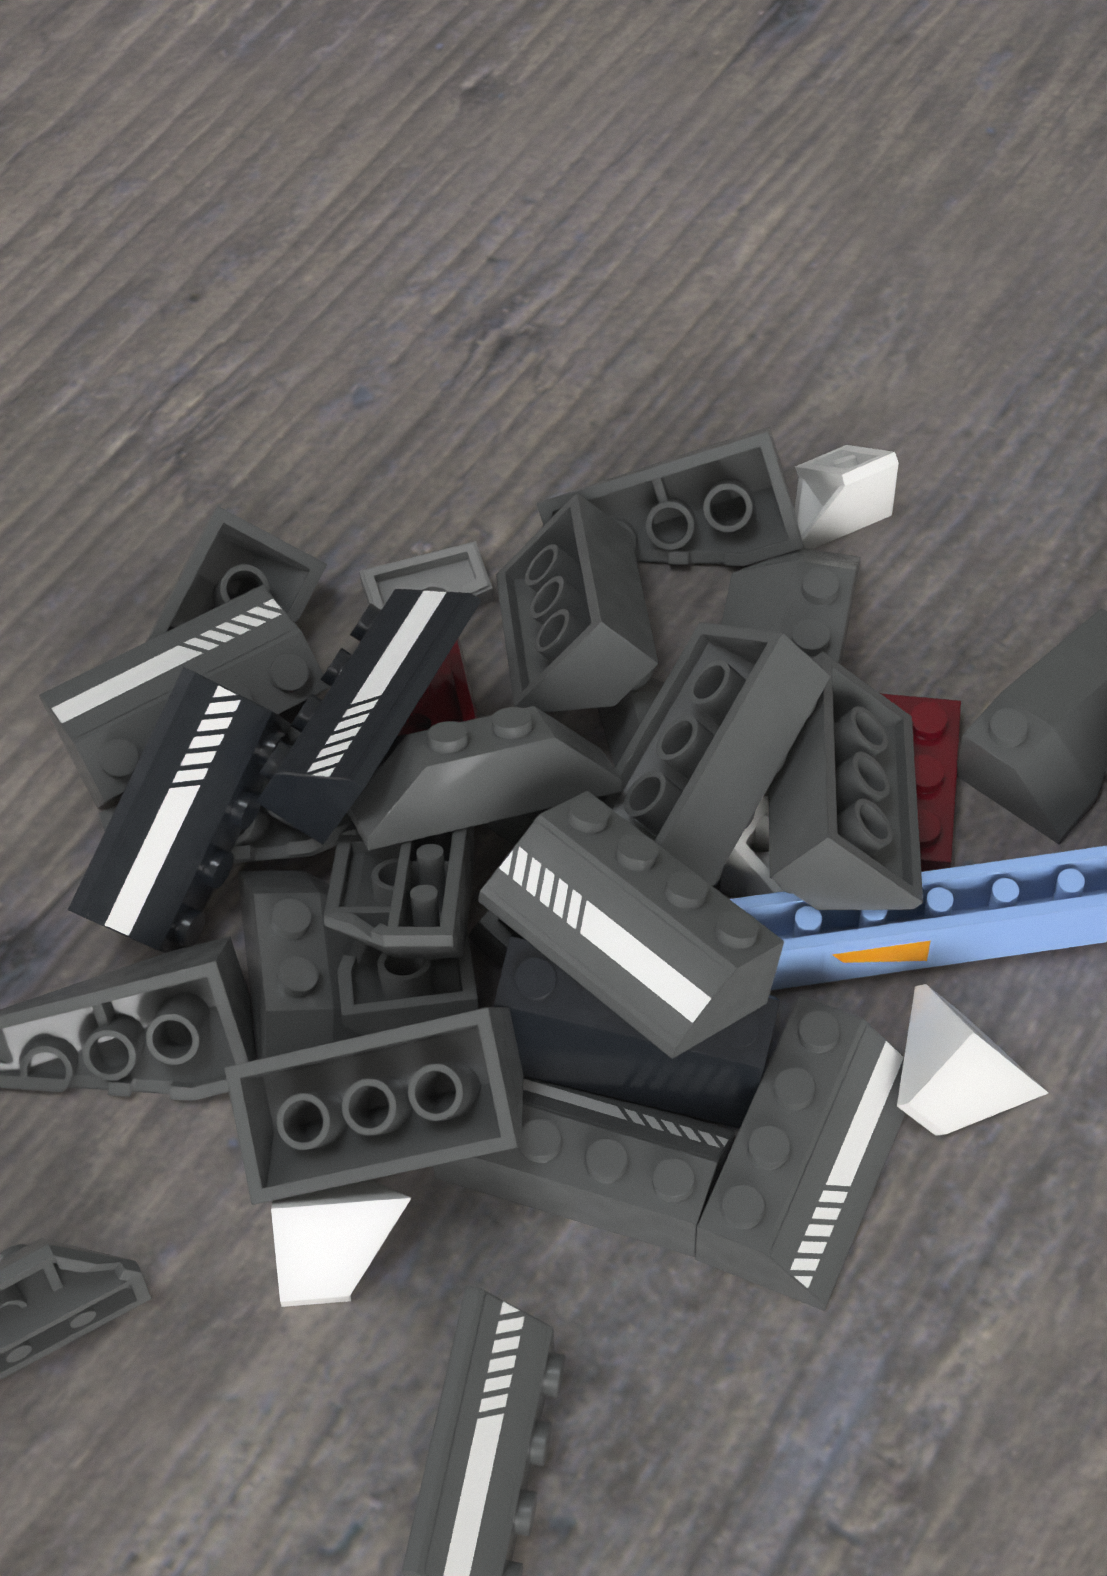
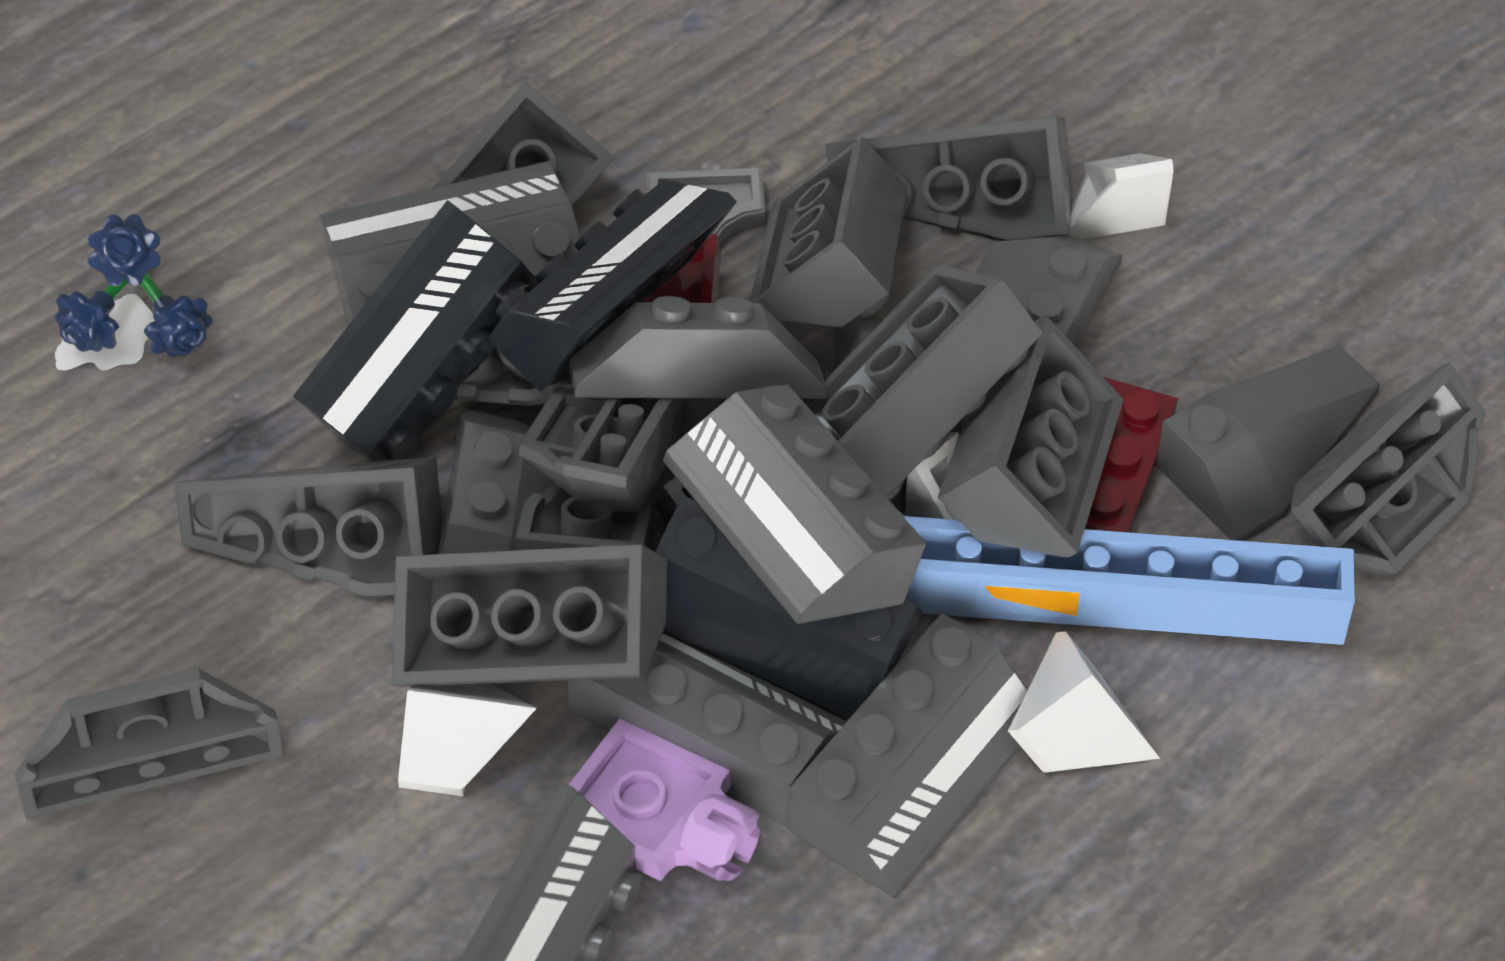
camera: 10 degrees right, 5 degrees down
(565, 1267) = (668, 804): none -> lavender plate

